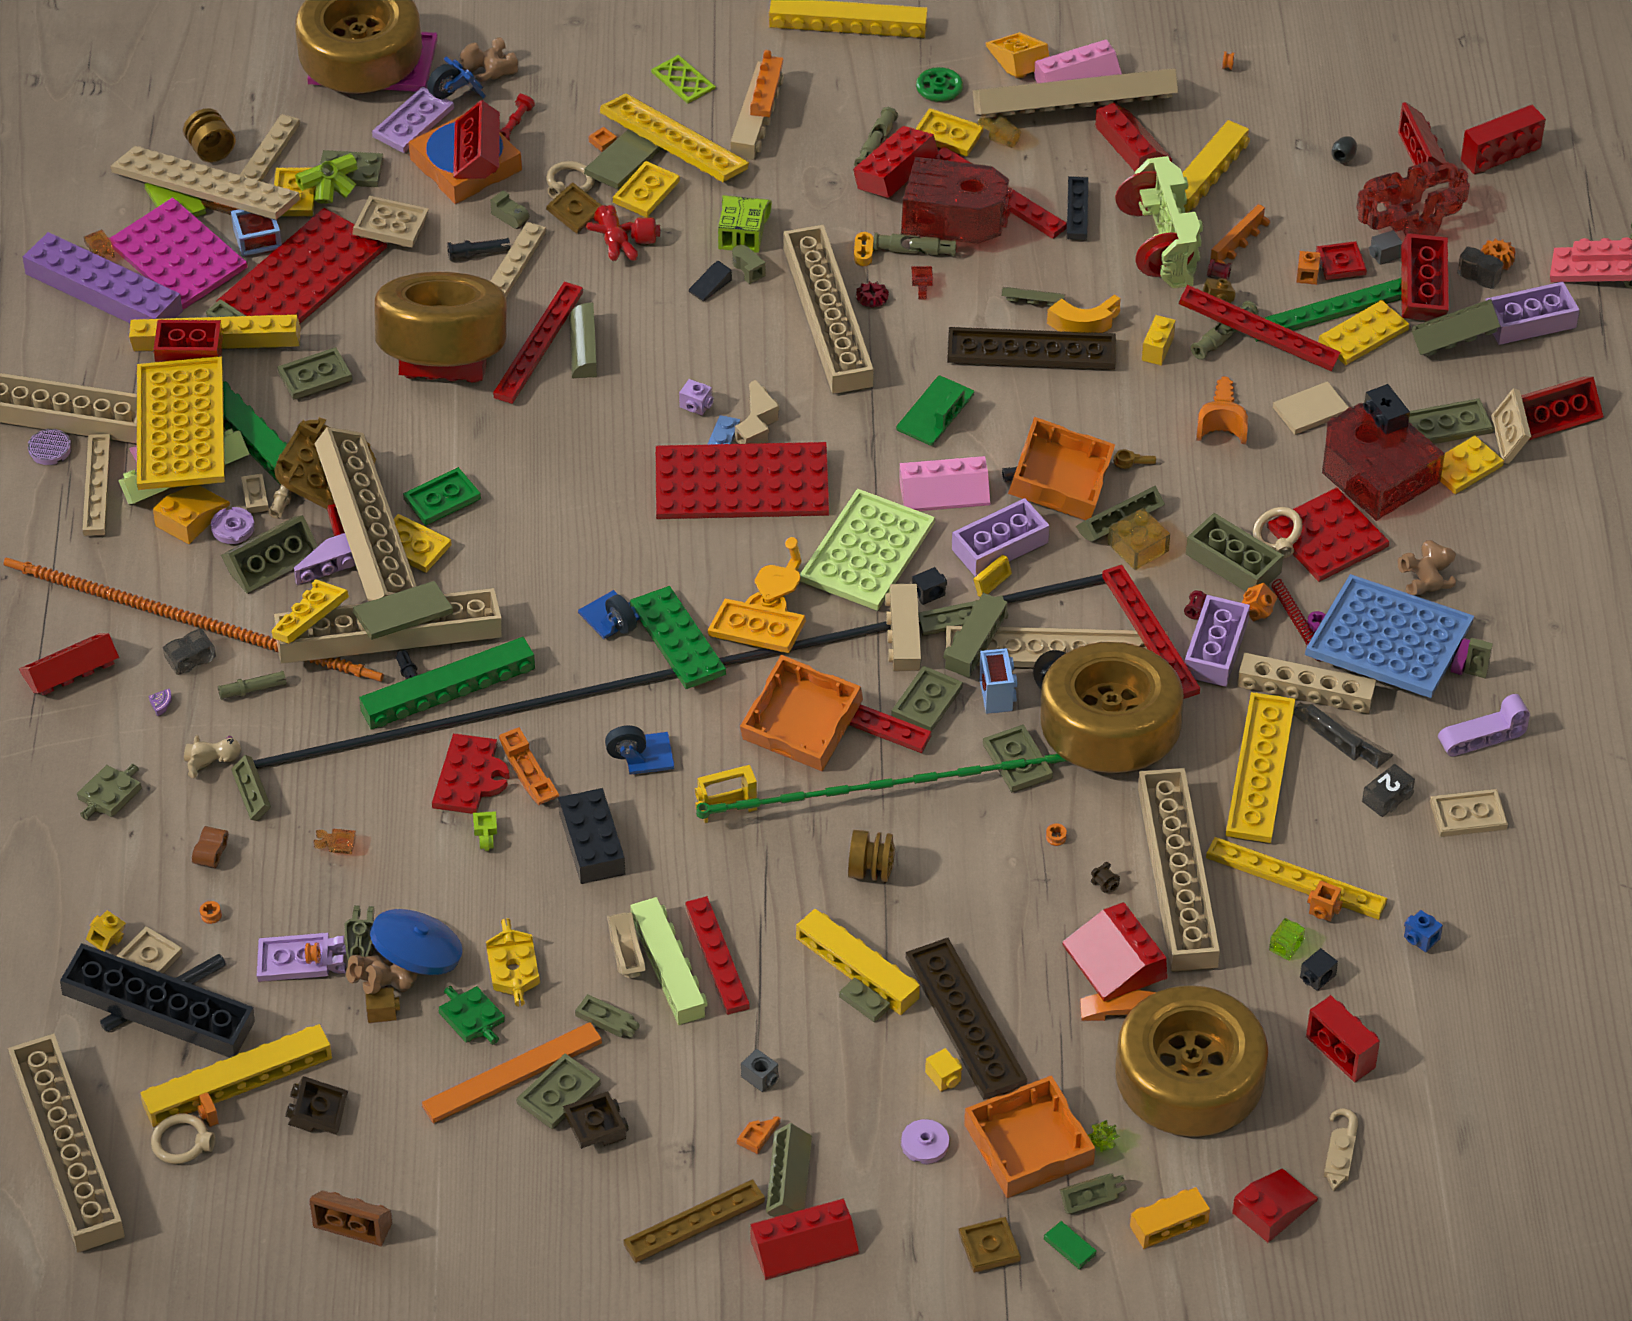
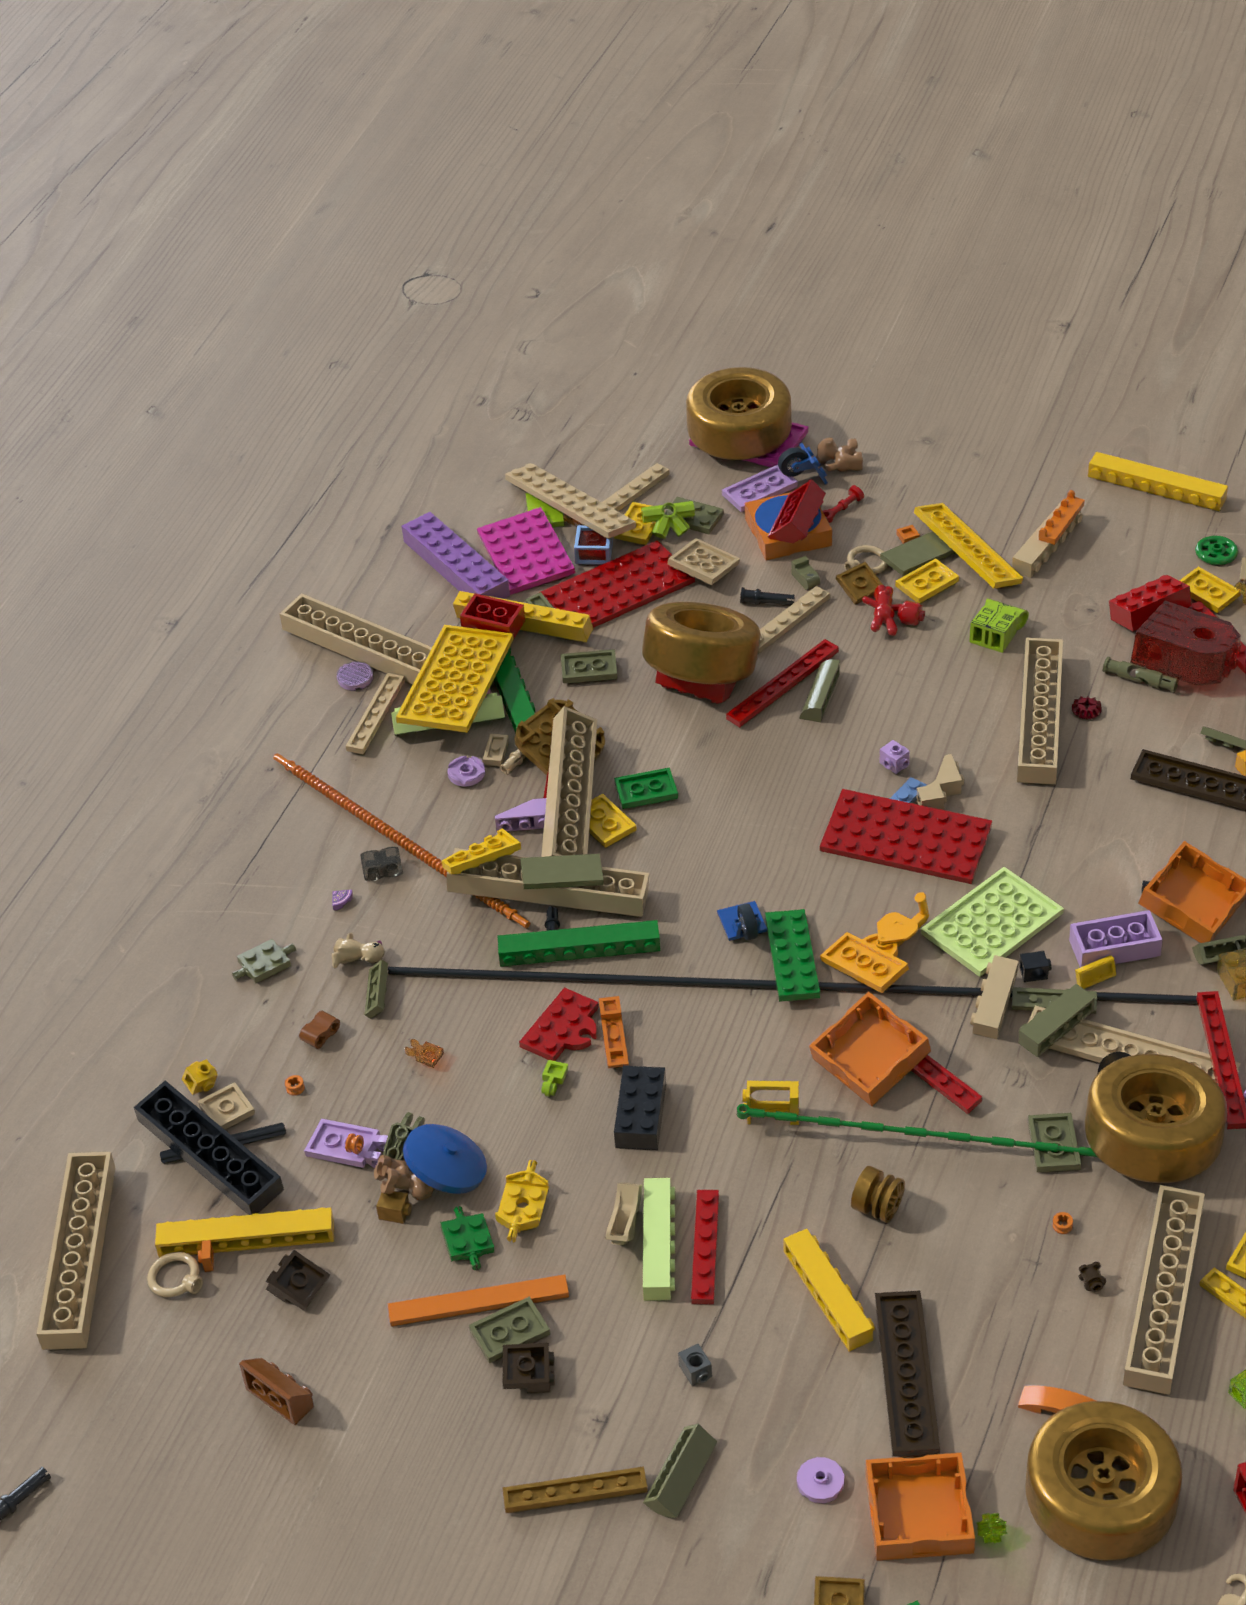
camera: 25 degrees right, 5 degrees down
(70, 663) = (283, 848): red slope -> none
(99, 243) = (468, 530): clear orange plate -> none
(188, 512) = (435, 751): light orange slope -> none
(209, 135) = (590, 466): pearl gold wheel -> none
(242, 687) = (418, 903): olive pin -> none
(270, 553) = (483, 800): olive slope -> none
(606, 1017) = (581, 1273): olive hinge -> none
(642, 751) = (715, 1046): plate -> none
(668, 65) = (1004, 513): lime window -> none
(711, 281) = (951, 666): black slope -> none
(749, 263) = (989, 658): olive leg -> none
(757, 1134) = (669, 1424): orange tile -> none
(804, 1239) = (666, 1540): red slope -> none
(863, 249) = (1091, 667): light orange beam -> none
(864, 1000) = (820, 1327): olive plate -> none
(878, 133) = (1149, 574): olive piece -> none
(922, 278) = (1135, 702): clear red plate -> none
(927, 698) = (991, 1066): olive plate -> none
(935, 410) = (1102, 817): green bracket -> none
(943, 1069) = (865, 1416): yellow brick -> none
(945, 483) = (1084, 881): bright pink slope -> none
(997, 680) = (1060, 1066): light blue piece -> none
(1091, 1192) = (958, 1581): olive hinge -> none
(1116, 953) = (1072, 1352): slope -> none

